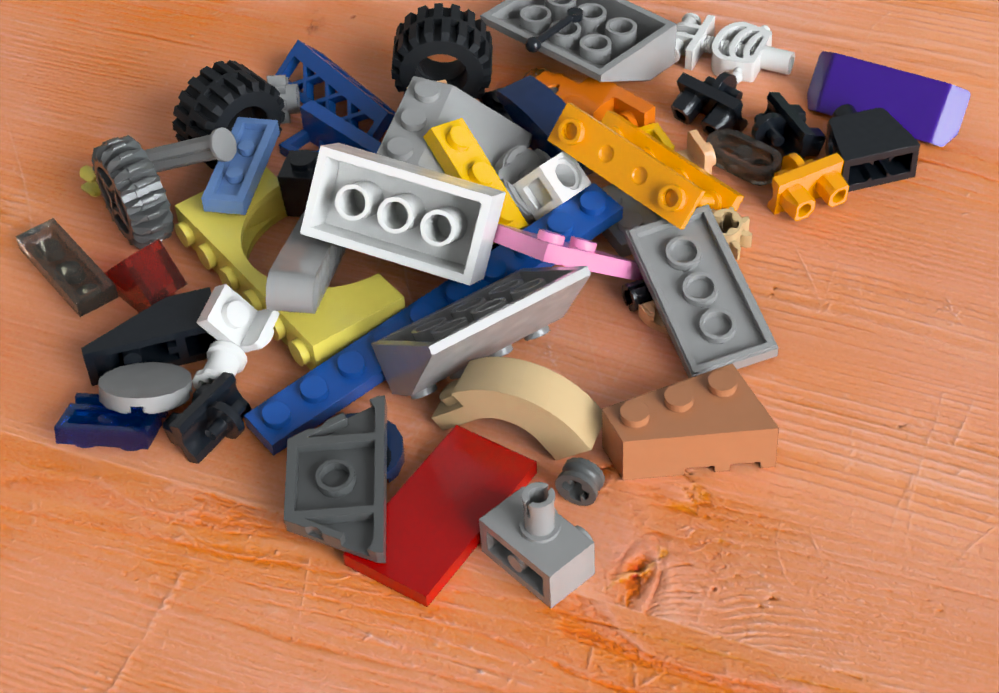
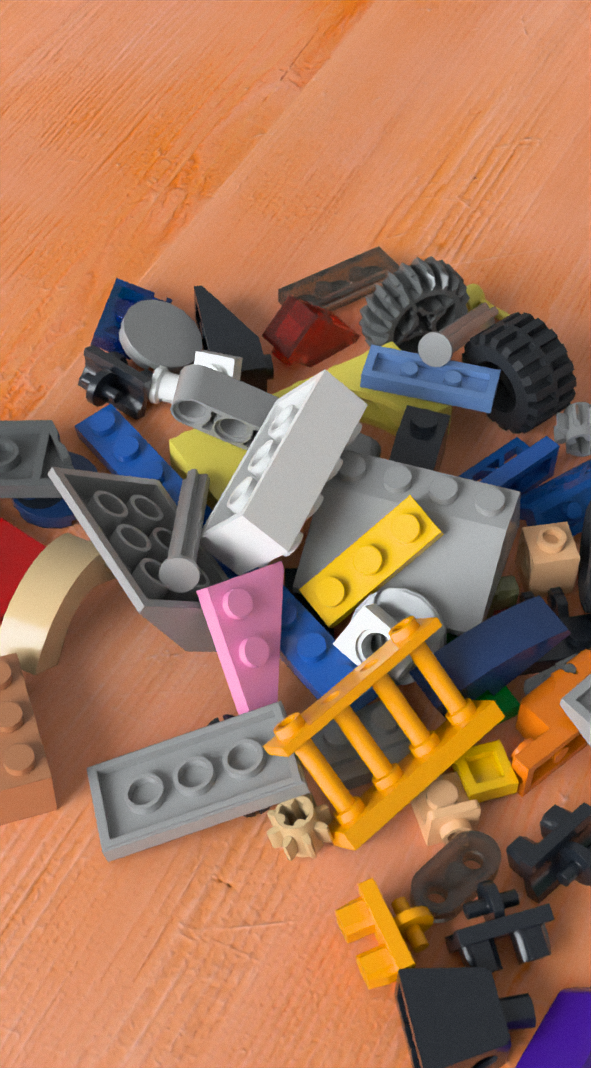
camera: 90 degrees right, 5 degrees up
(455, 288) = (180, 569): none -> light grey axle

